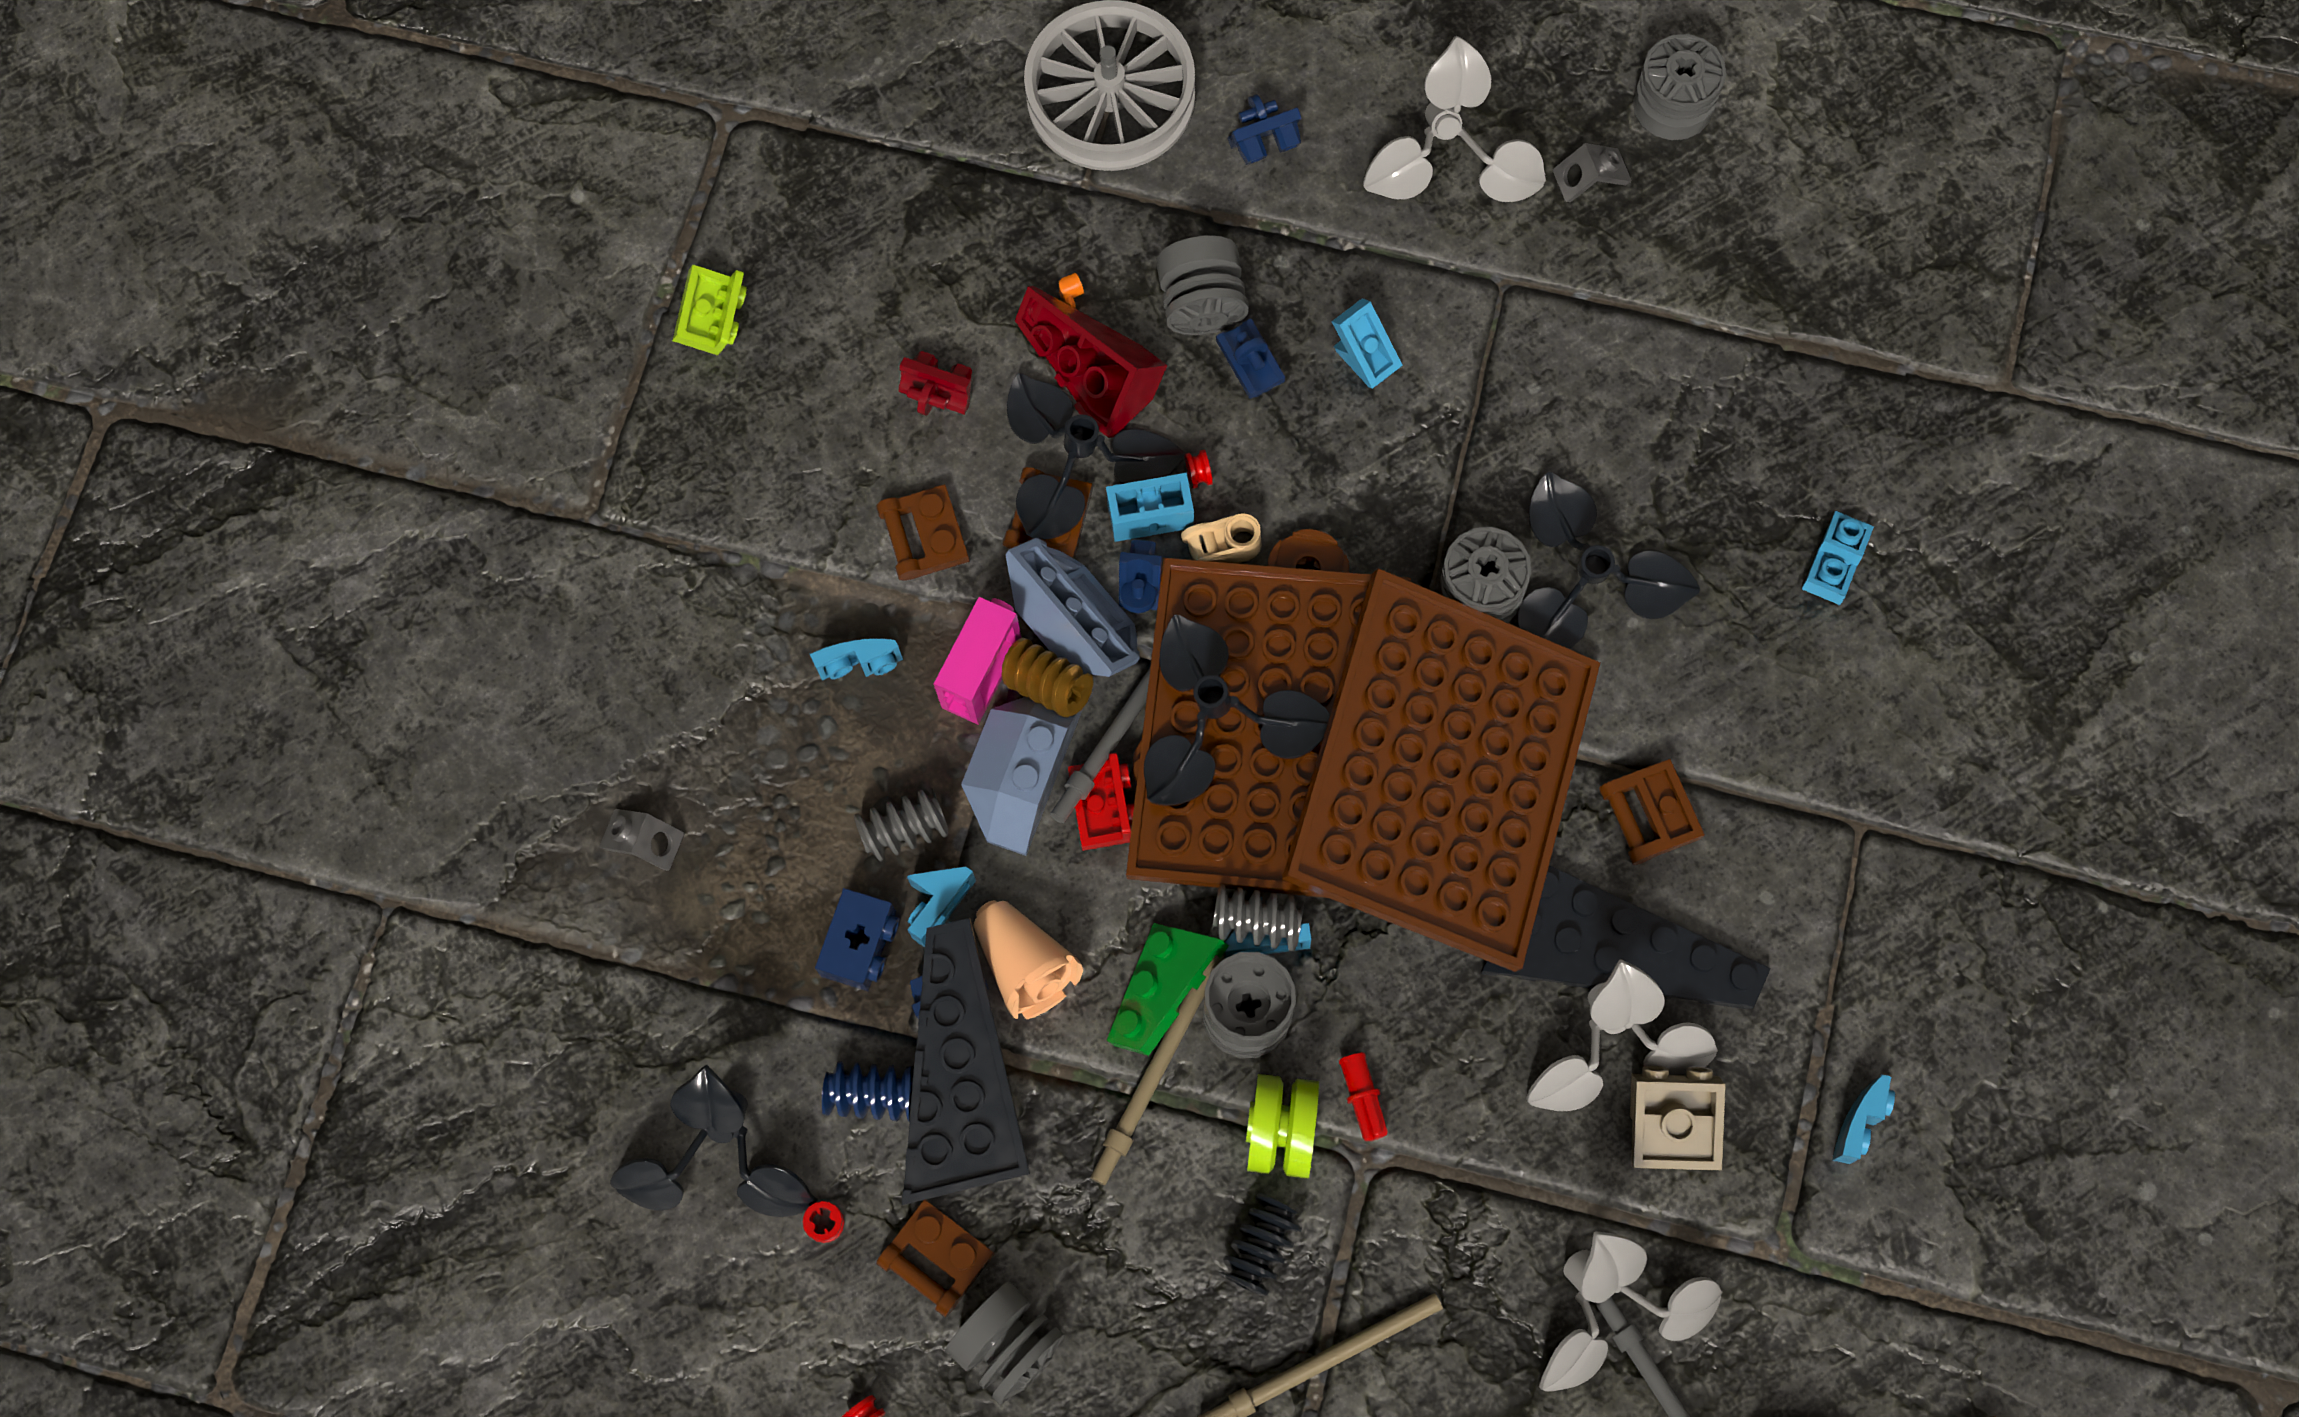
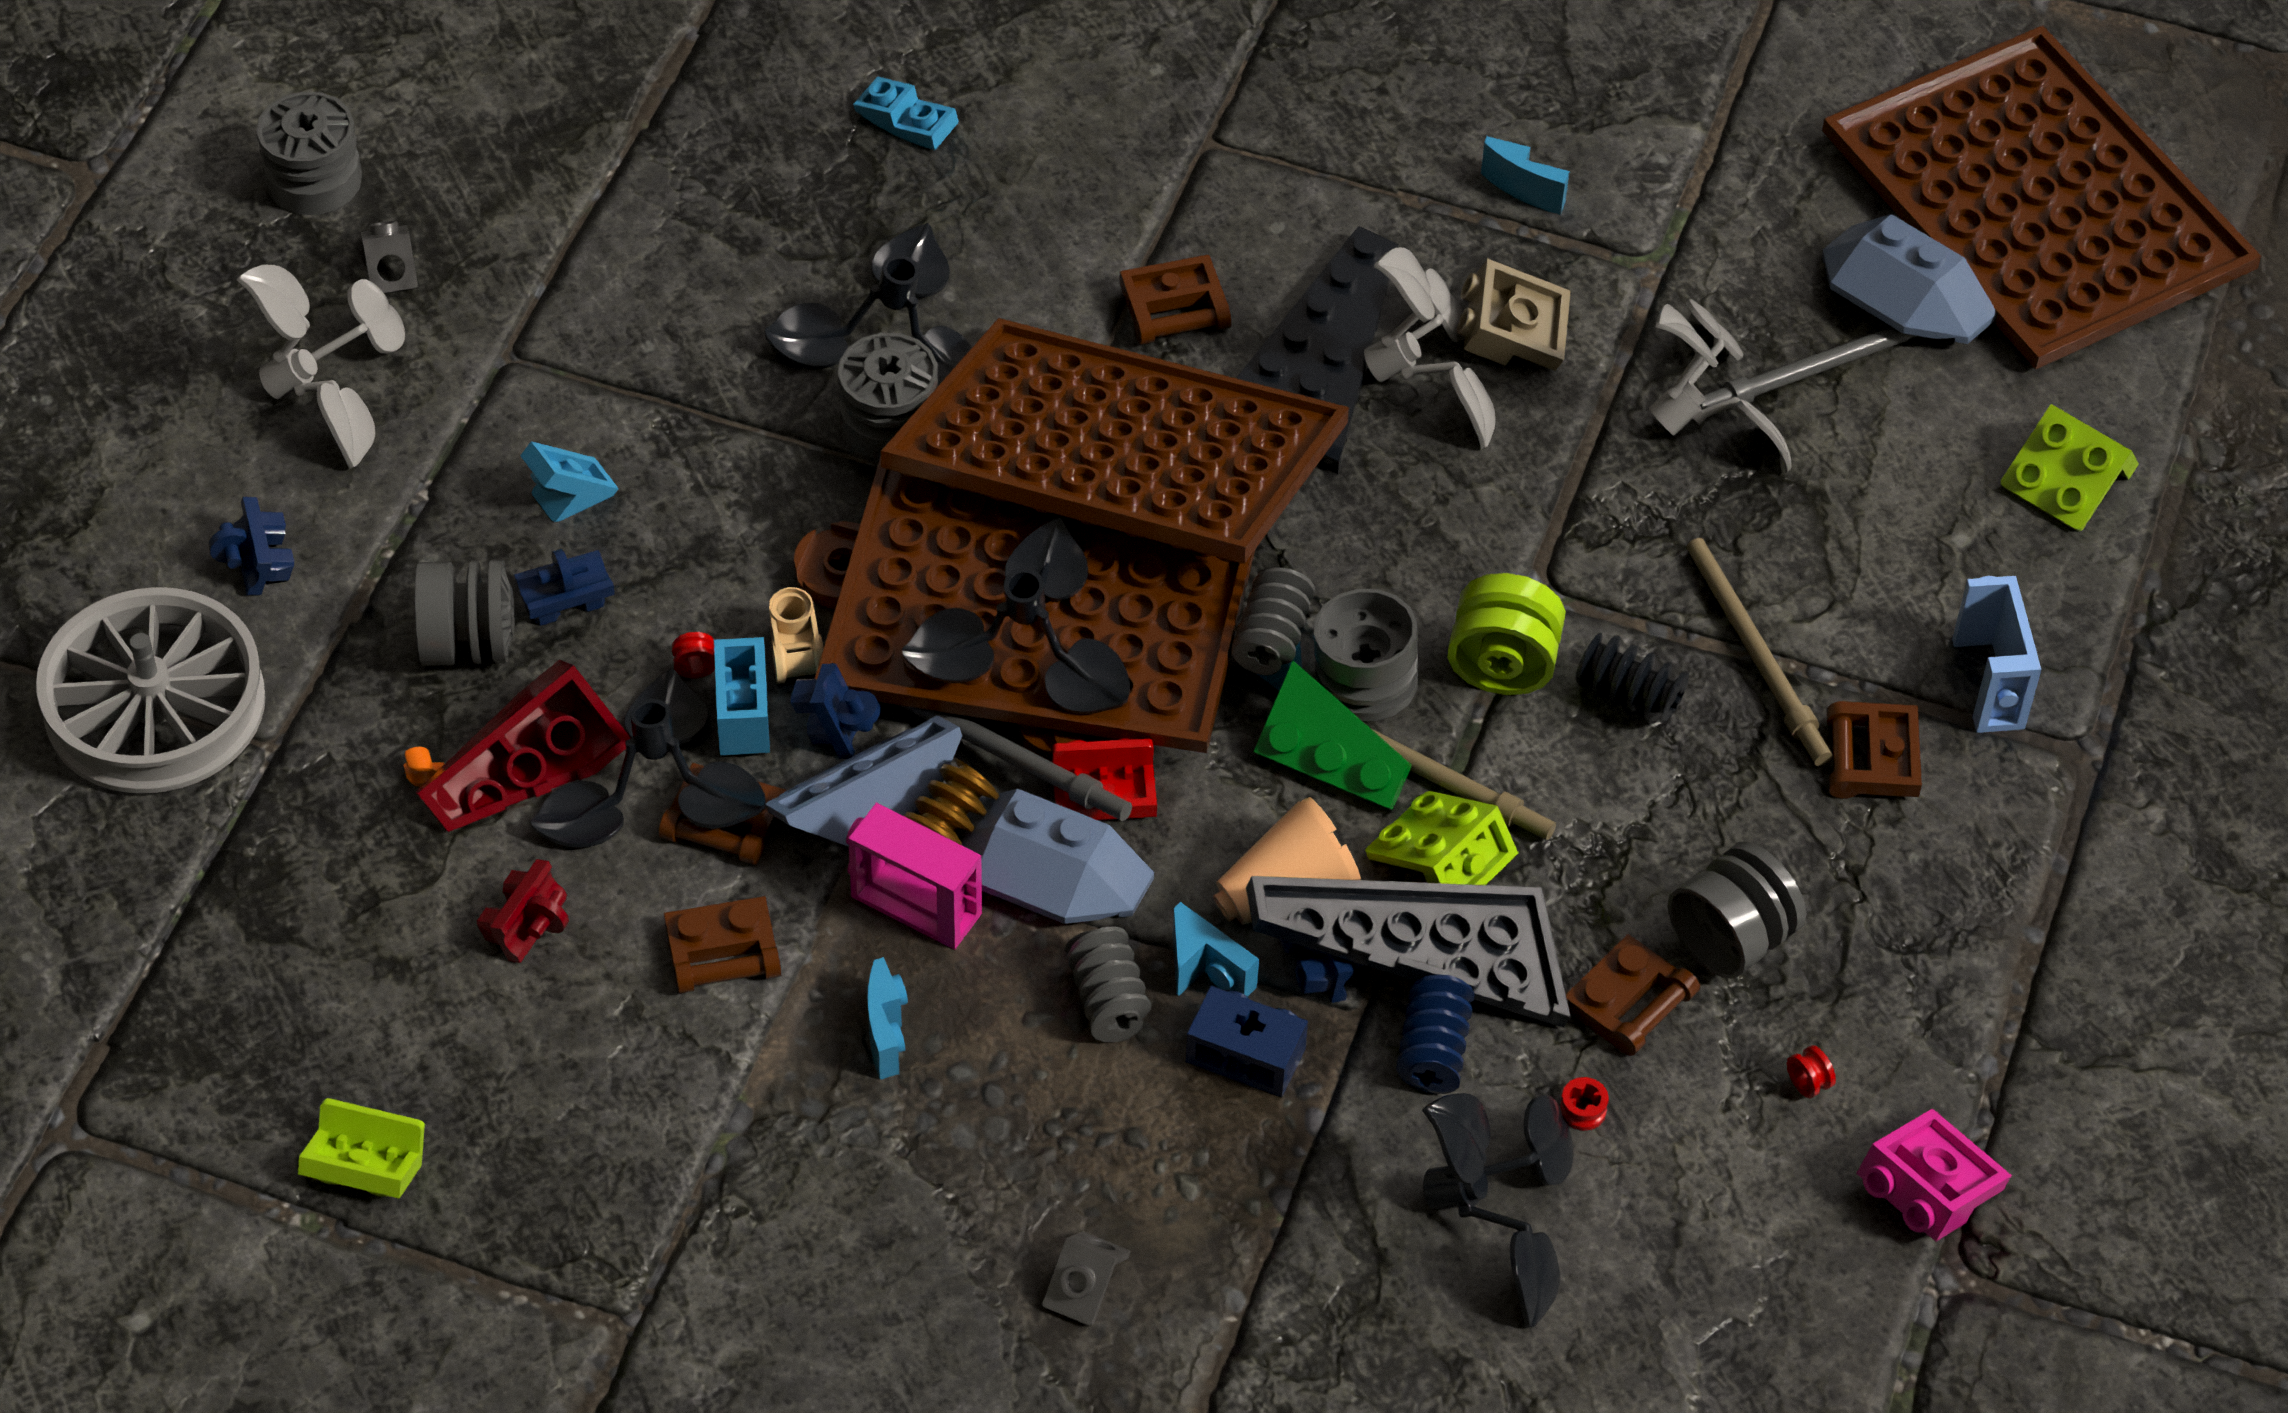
camera: 90 degrees left, 20 degrees down
(1068, 1087) = (1447, 840): none -> lime bracket
(1363, 1096) = (1449, 583): red axle -> none

